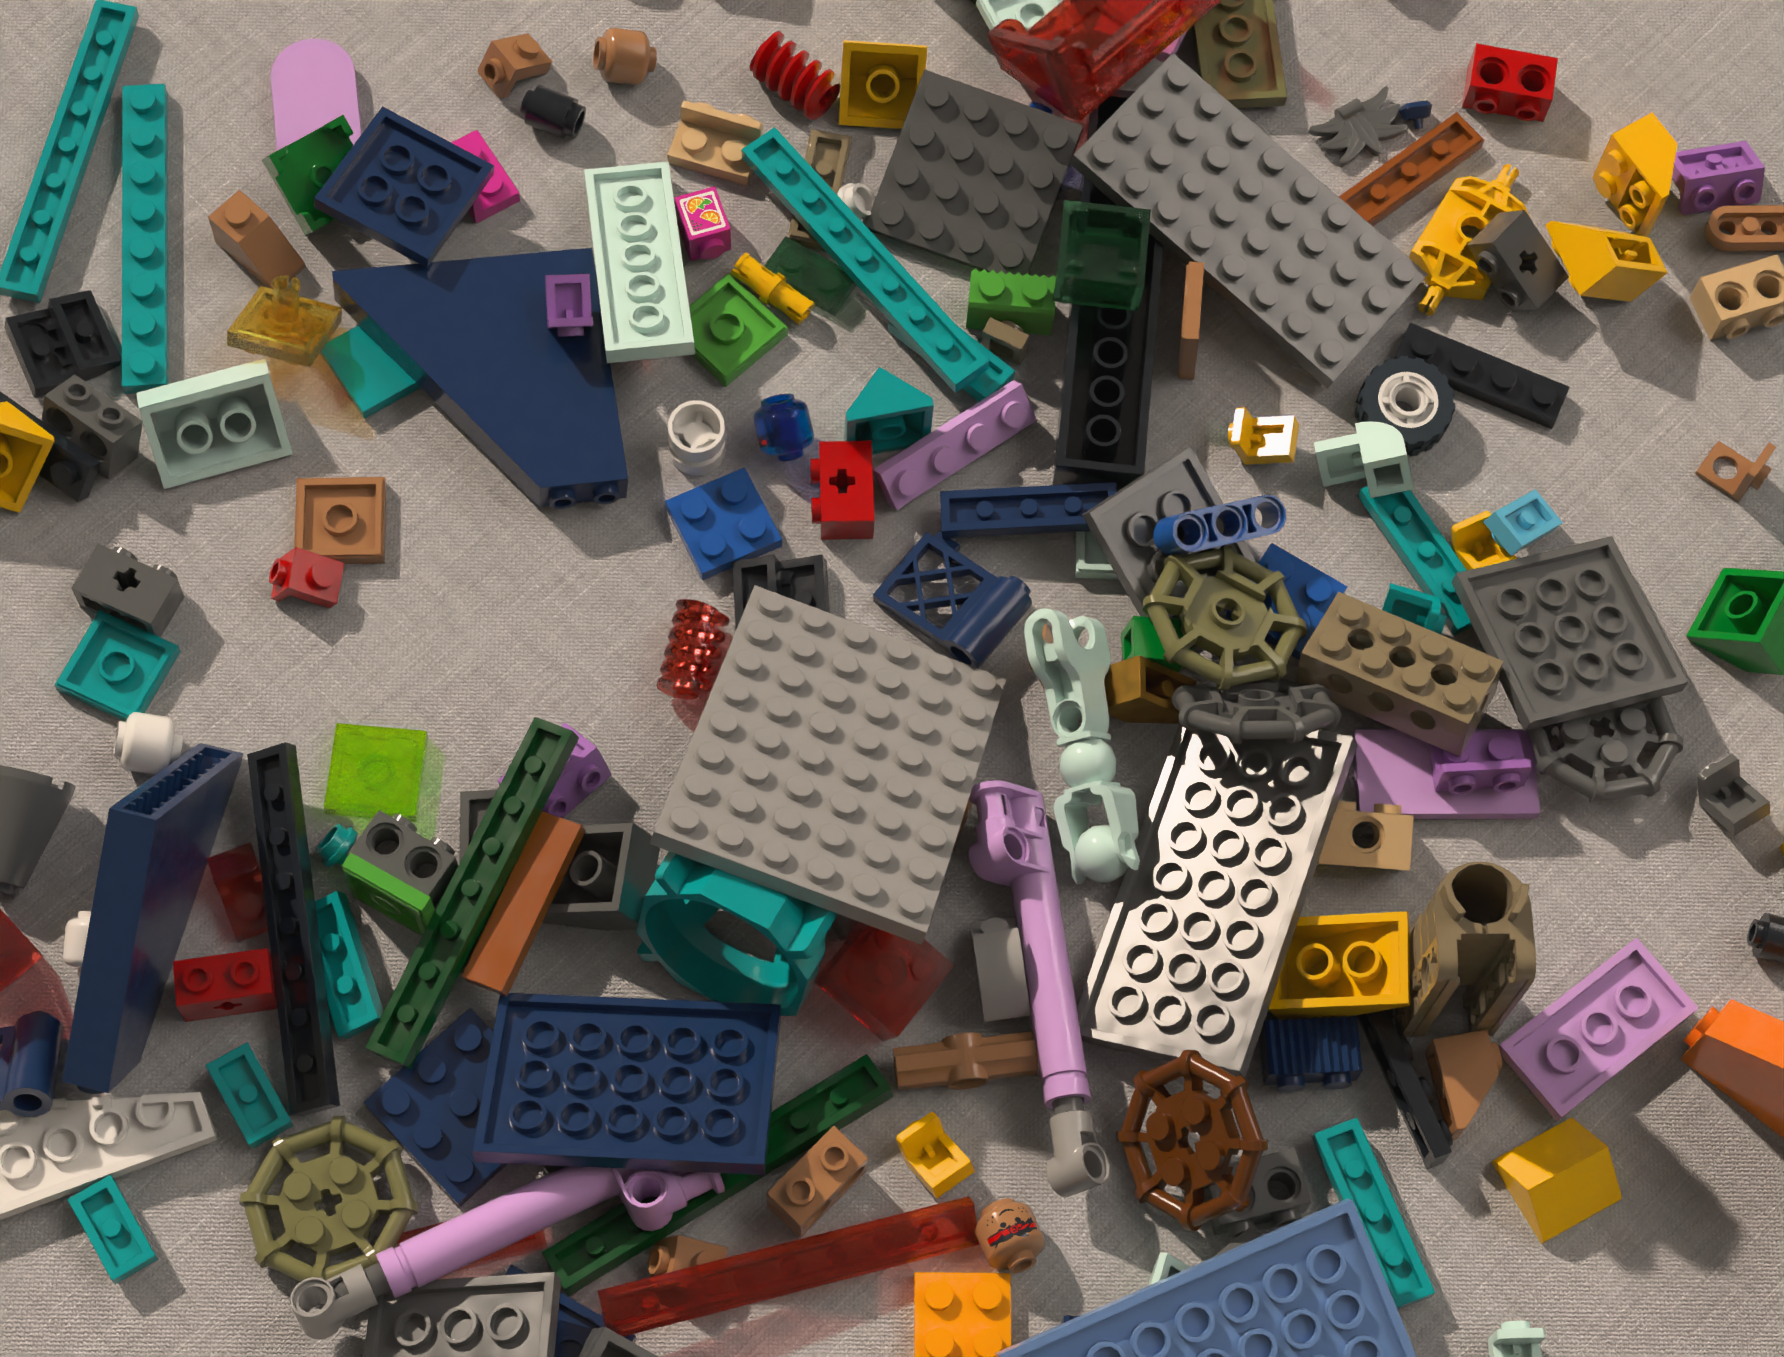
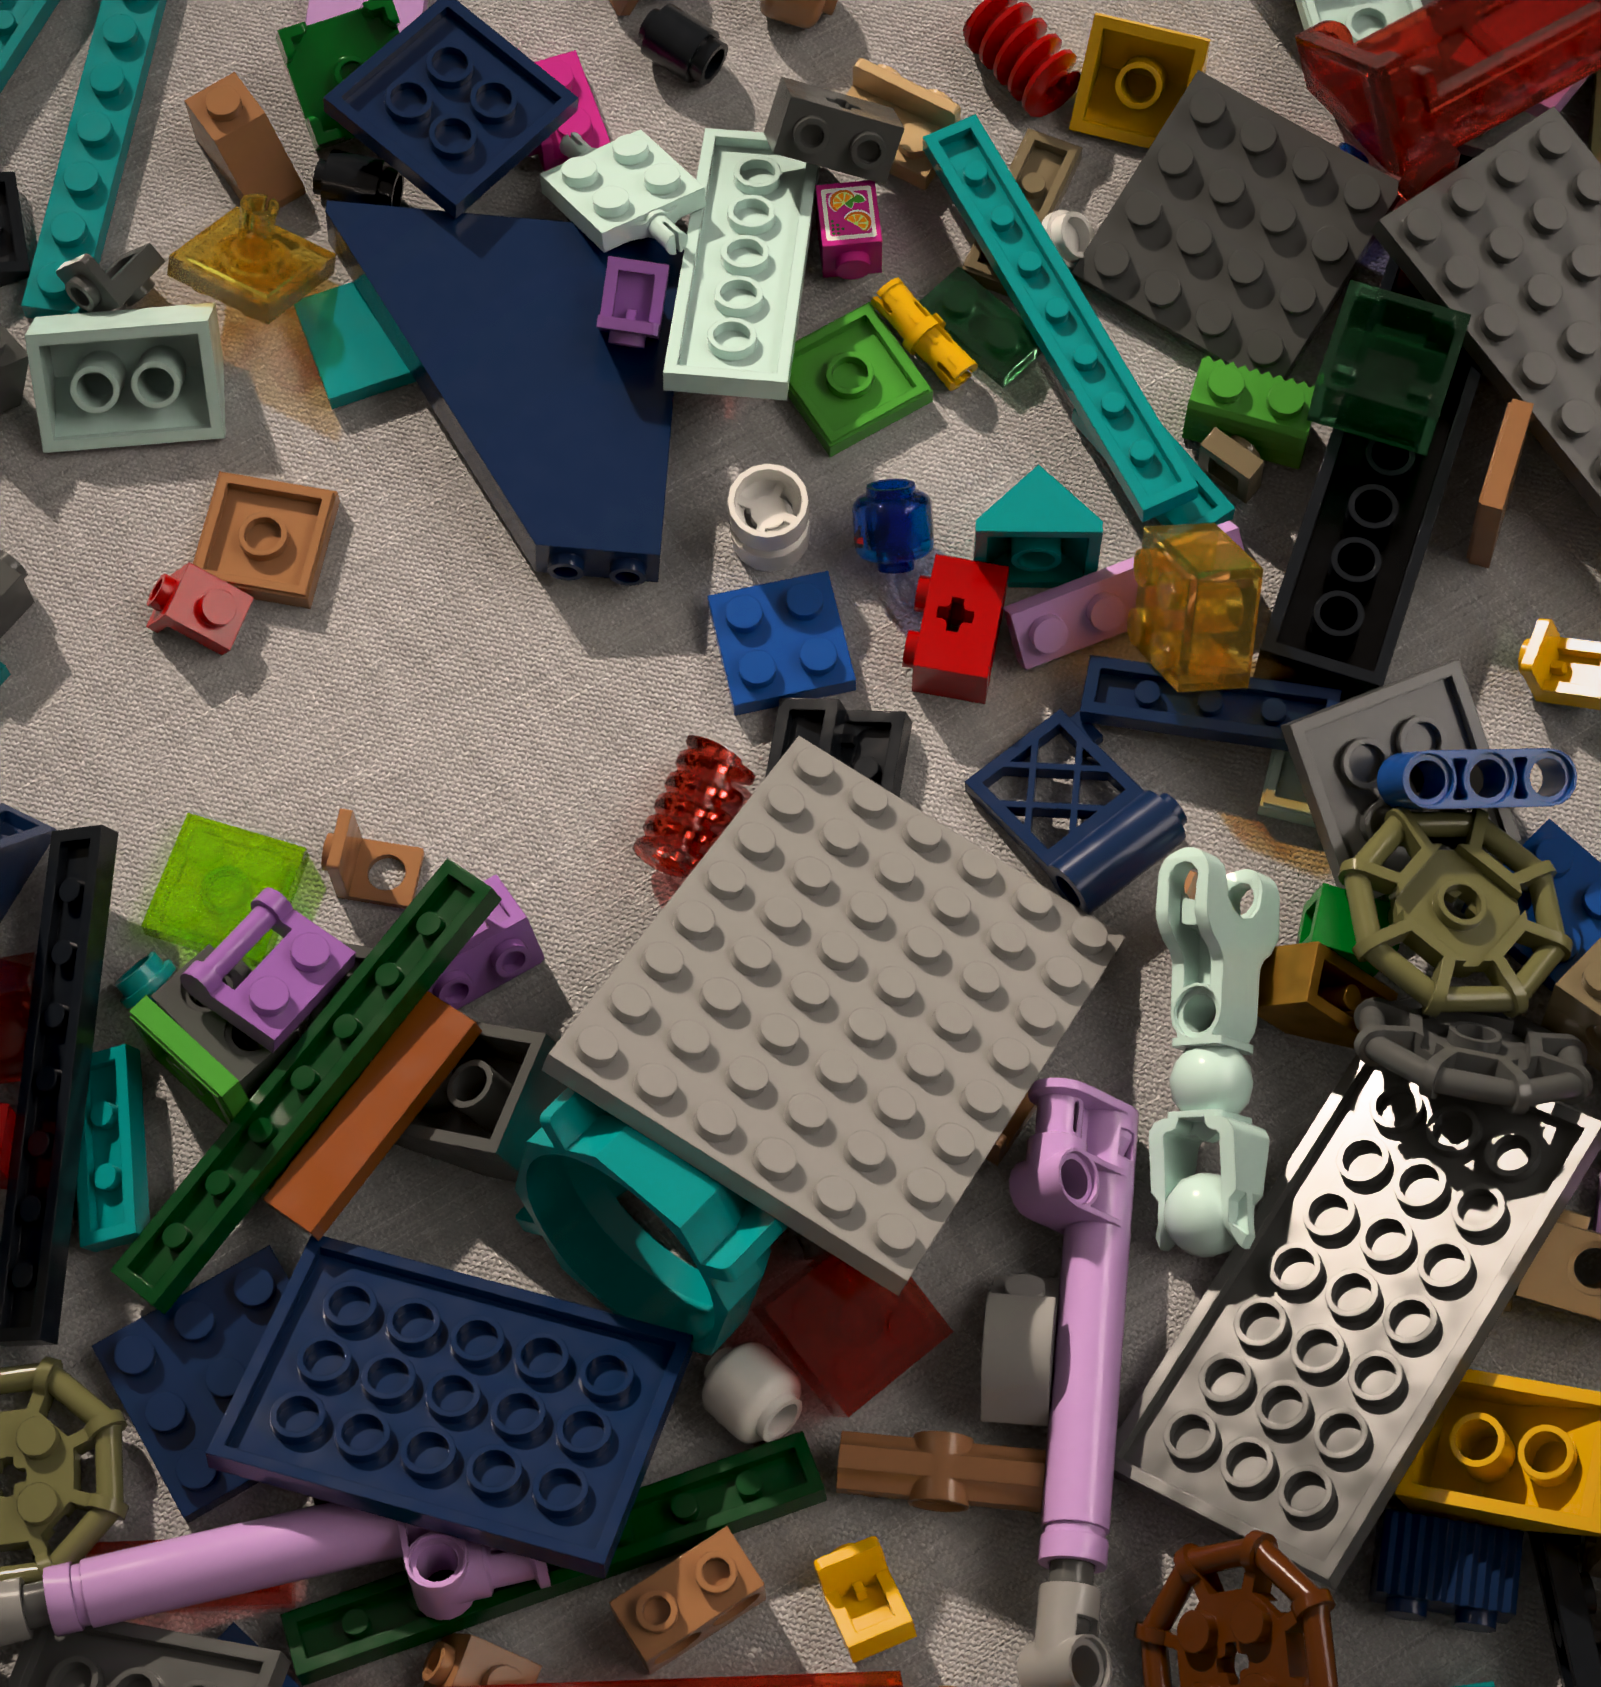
camera: 20 degrees right, 0 degrees up
(188, 359) = (121, 283): none -> dark grey bracket
(344, 252) = (357, 180): none -> black brick
(439, 827) = (286, 981): none -> medium lavender plate
(460, 732) = (351, 857): none -> medium nougat bracket
(540, 226) = (623, 191): none -> light aqua plate
(679, 156) = (833, 130): none -> dark grey brick
(826, 1036) = (752, 1393): none -> white head
(1006, 444) = (1195, 606): none -> clear yellow brick
(1098, 113) = (1428, 169): none -> clear red tile

